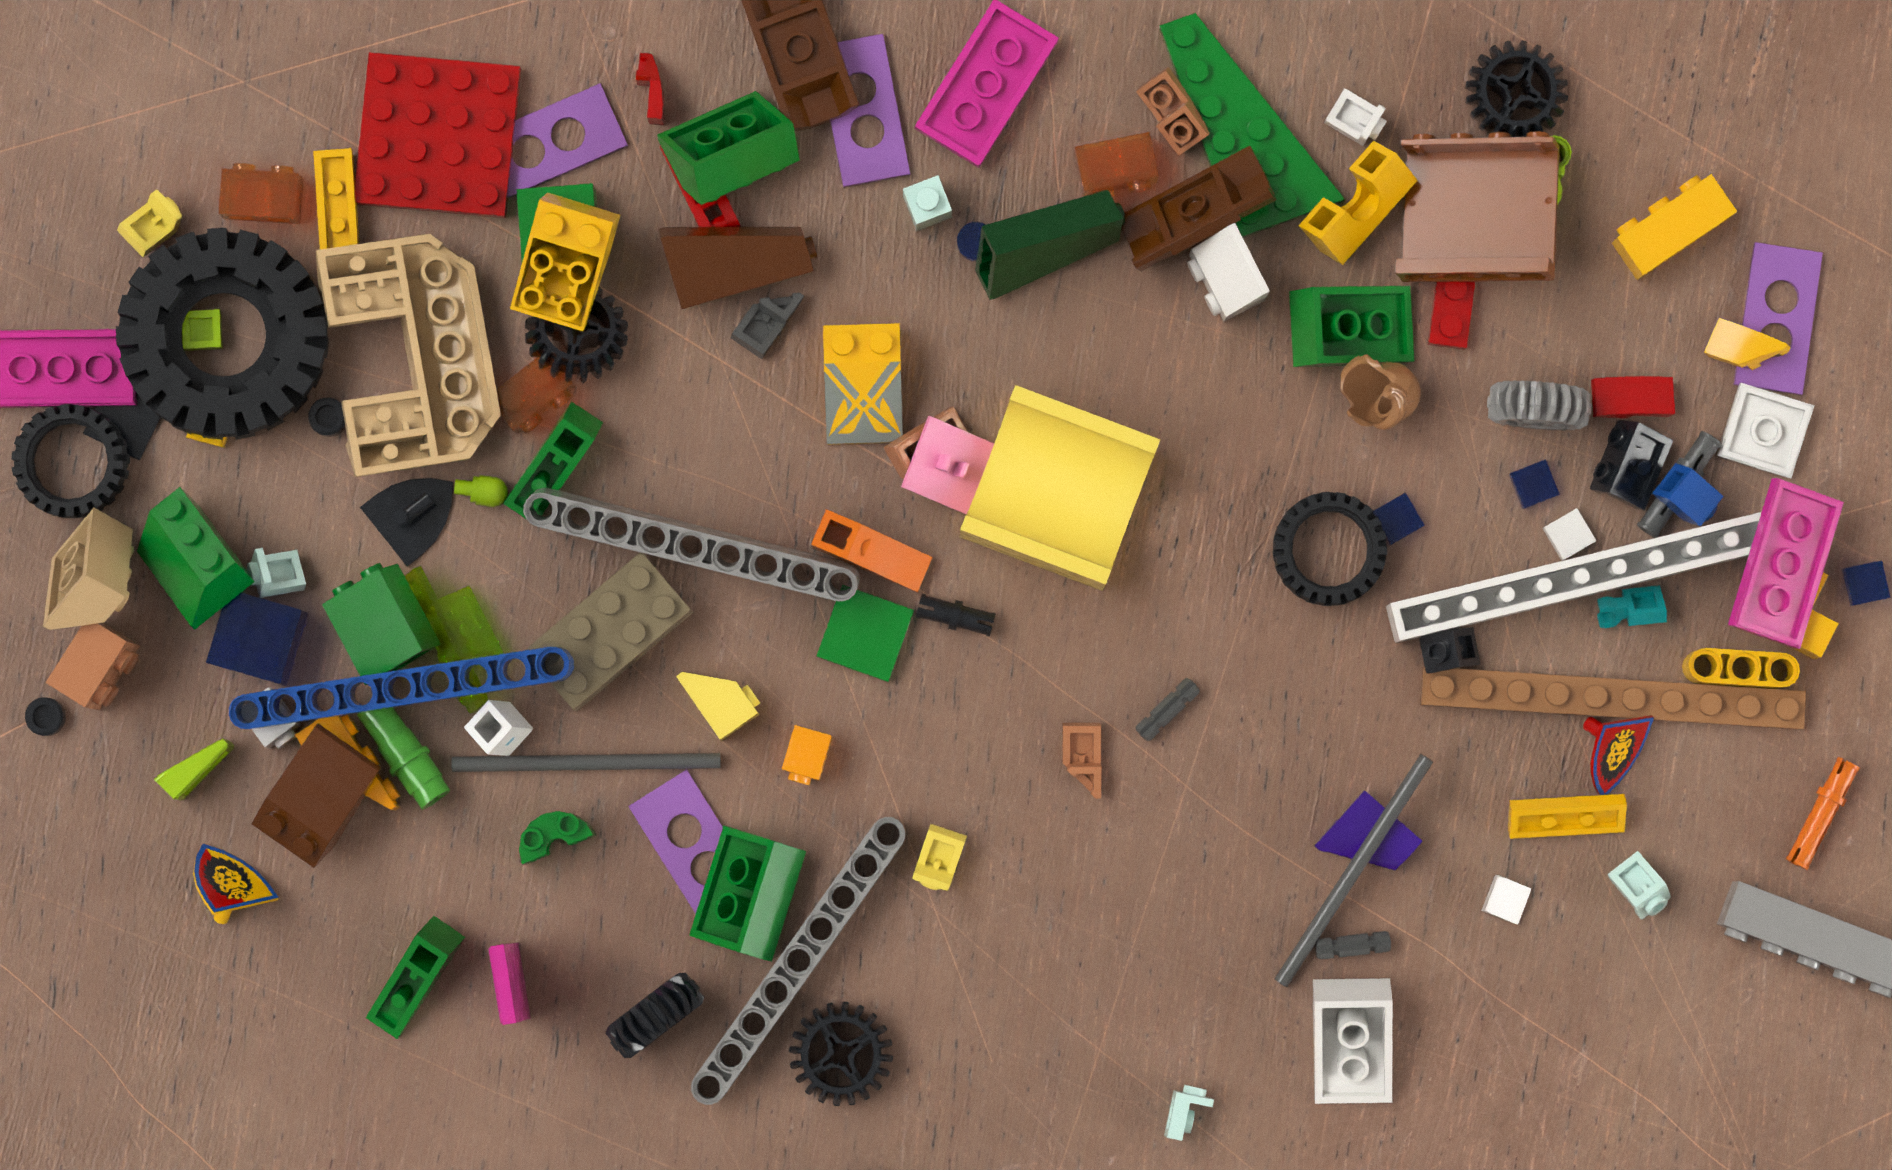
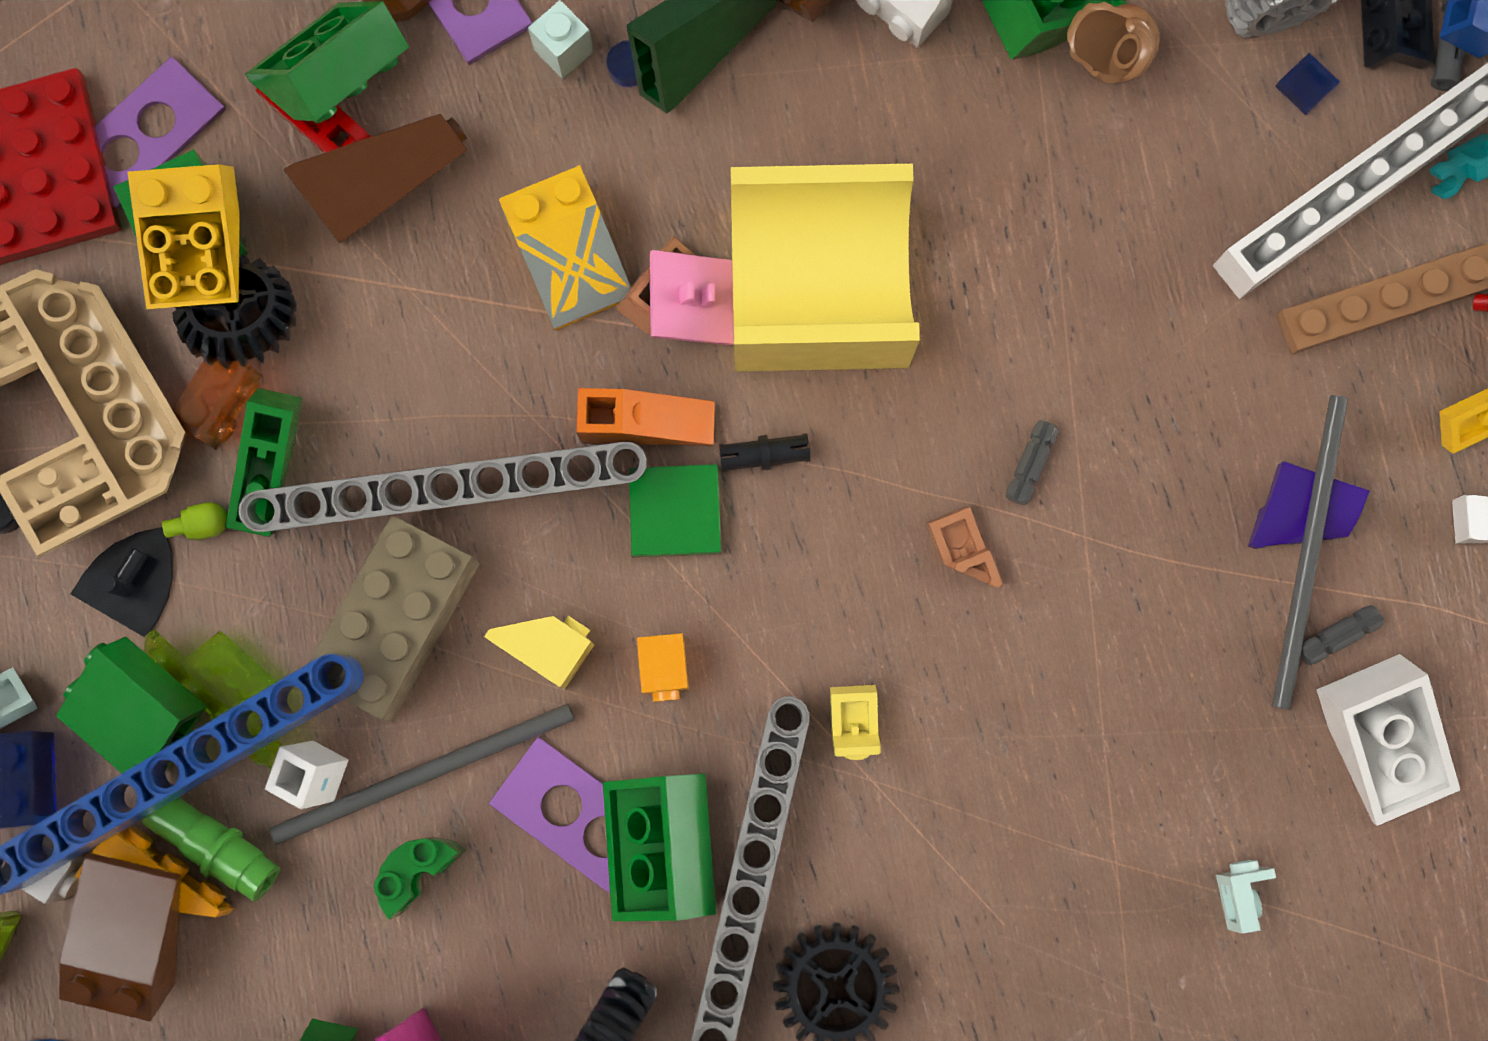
camera: 20 degrees left, 5 degrees down
(649, 76) = (220, 30): red slope -> none
(765, 323) = (439, 229): dark grey slope -> none
(1347, 506) = (1152, 184): black tyre -> none
(1398, 518) = (1184, 172): clear blue tile -> none
(1449, 650) = (1301, 281): black bracket -> none
(1569, 534) = (1367, 118): white tile -> none

